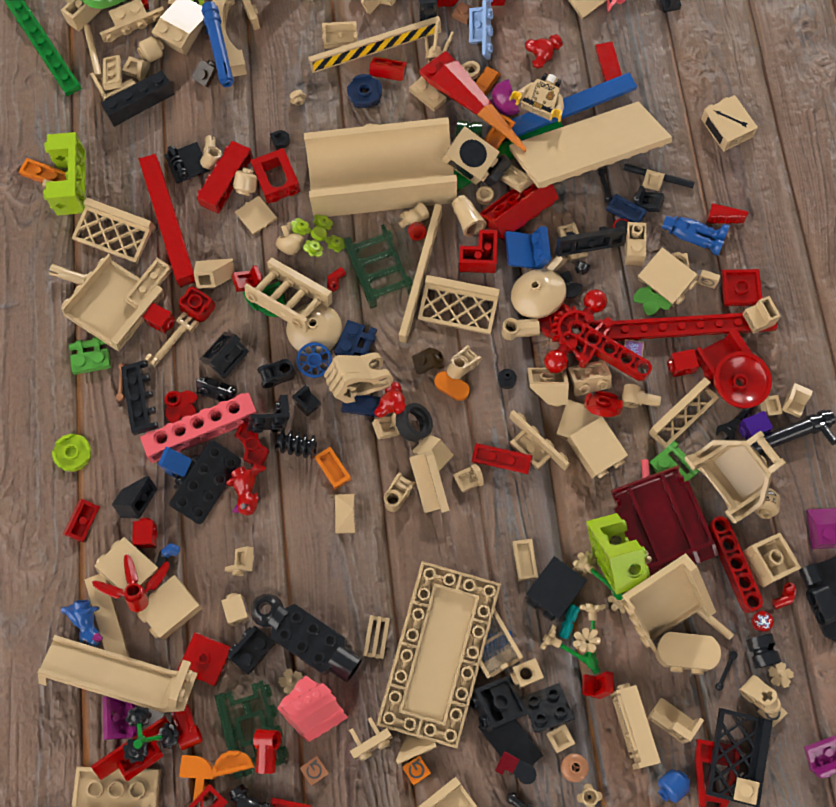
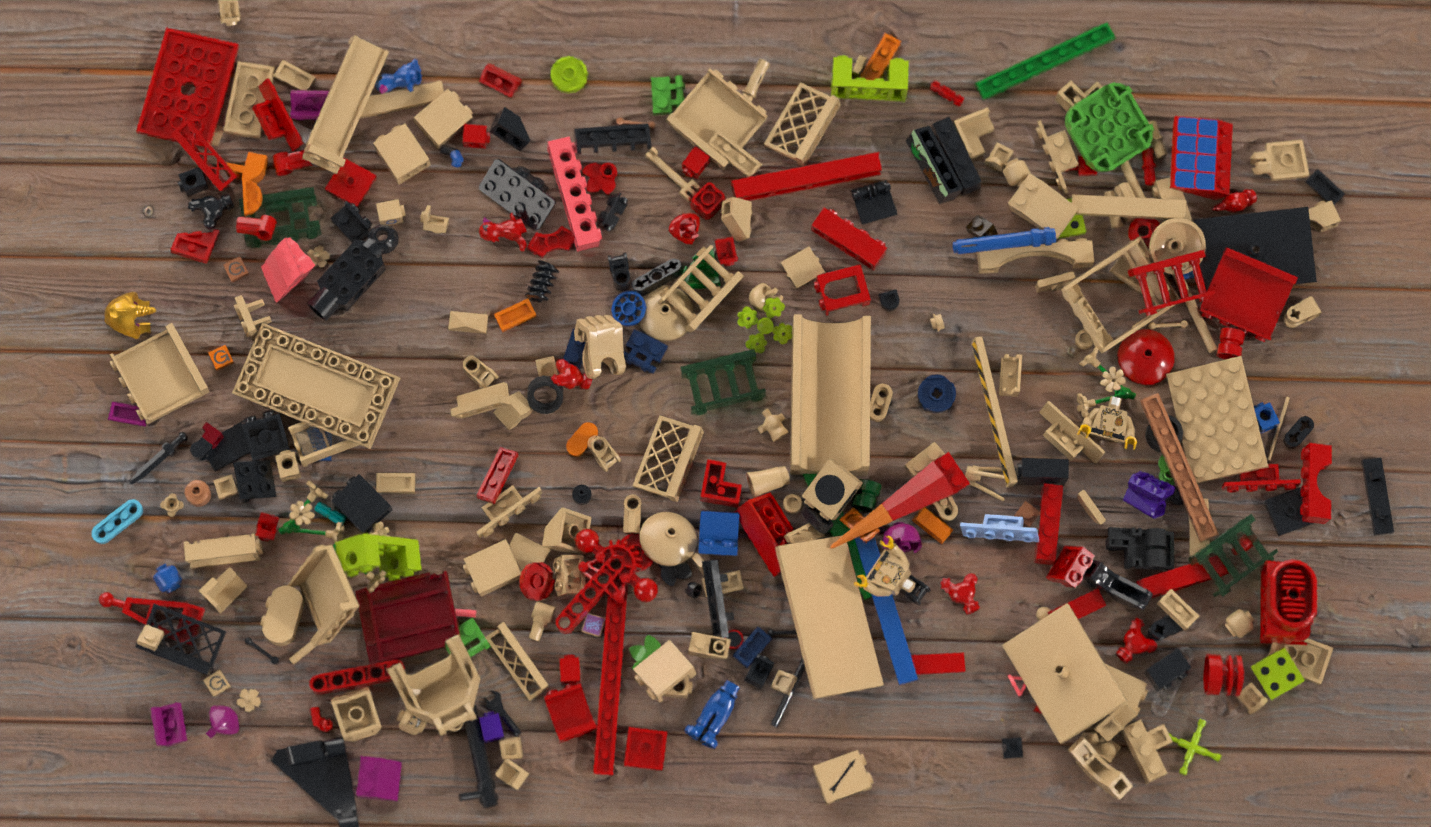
camera: 90 degrees right, 5 degrees up
(76, 115) = (947, 93): none -> red axle
(87, 742) = (294, 76): none -> tan tile
(93, 54) = (1024, 113): tan bar -> none
(112, 72) = (990, 131): tan tile -> none
(134, 593) = (411, 121): red plant -> none
(137, 748) = (277, 116): black plant -> none
(147, 113) = (934, 164): none -> black brick
(174, 462) = (537, 166): blue slope -> none
(211, 153) = (880, 226): tan pin -> none
(224, 354) = (646, 221): black bracket -> none
(227, 317) = (685, 227): none -> red piece
(245, 182) = (837, 257): tan head -> none
(271, 335) = (660, 270): none -> black beam
(273, 422) = (574, 268): black bracket -> none
(306, 400) = (585, 296): black panel -> none
(333, 279) = (715, 337): red arm -> none
(368, 638) = (347, 330): tan tile -> none
(387, 68) = (965, 423): red slope -> none
(414, 747) = (239, 355): tan slope -> none
(417, 231) = (757, 426): red tile -> none
(420, 274) = (709, 424): tan tile -> none
(428, 360) = (611, 419): dark brown bracket -> none
(469, 478) = (484, 442): tan tile -> none
(708, 279) = (659, 715): tan tile -> none
(725, 215) = (732, 743): red slope -> none
(750, 372) = (523, 717): red dish -> none
(761, 315) = (605, 755): tan piece -> none
(761, 695) = (232, 673): tan piece -> none
(762, 621) = (301, 693): red tile -> none
(763, 651) = (271, 684): black wheel -> none
(814, 696) = (223, 721): none -> magenta piece

